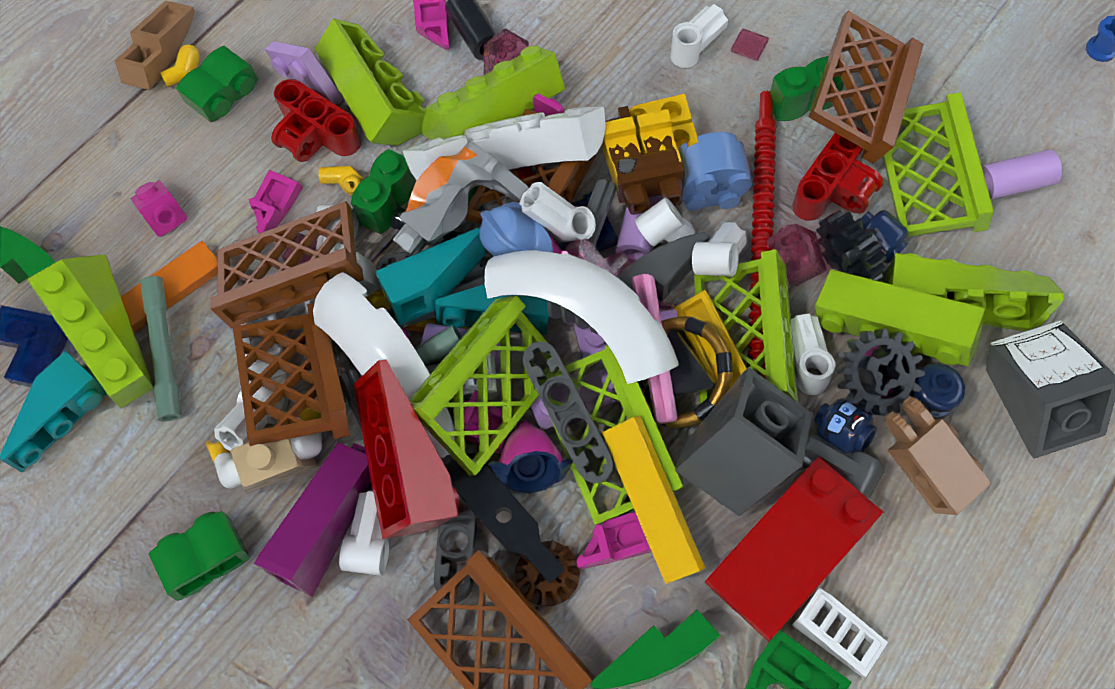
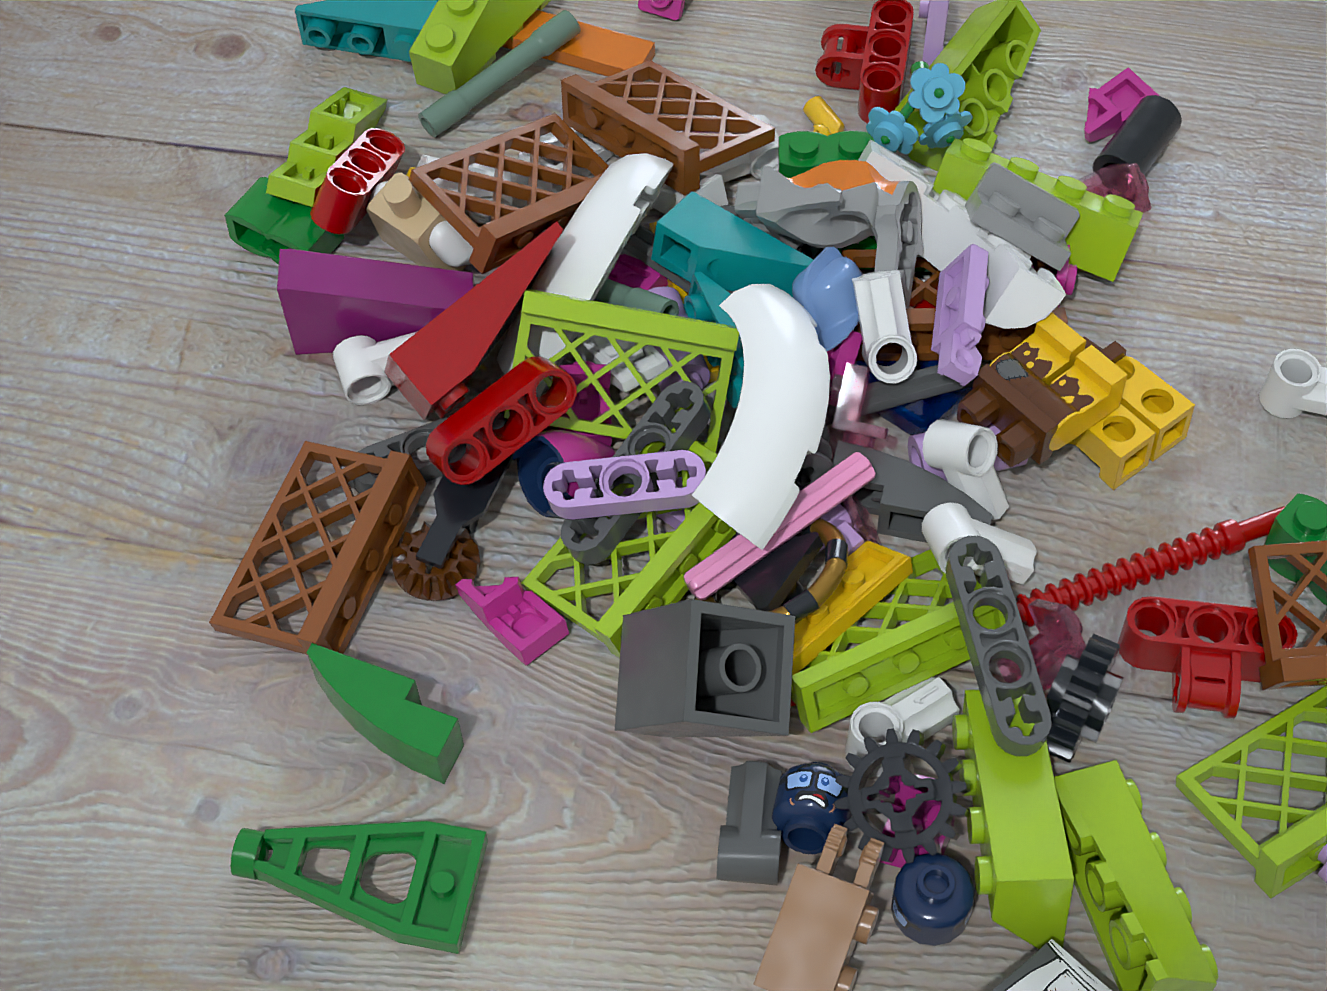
camera: 60 degrees right, 10 degrees down
(150, 494) = (330, 132): none -> lime slope
(204, 484) = (353, 177): none -> red beam
(273, 200) = (750, 80): dark pink slope -> none
(402, 98) = (935, 94): none -> medium azure plant
(492, 476) = (527, 418): none -> red beam
(515, 102) = (1023, 215): none -> light grey bracket
(574, 169) = (960, 315): none -> lavender hinge
(589, 389) = (608, 469): none -> lavender beam
(653, 500) = (576, 615): yellow tile -> none
(714, 171) = (1093, 488): medium blue brick -> none
(793, 548) = (602, 805): red slope -> none
(810, 276) = (1004, 642): none -> dark grey beam
(835, 609) = (530, 863): white slope -> none
(888, 232) = (1145, 741): dark blue head -> none

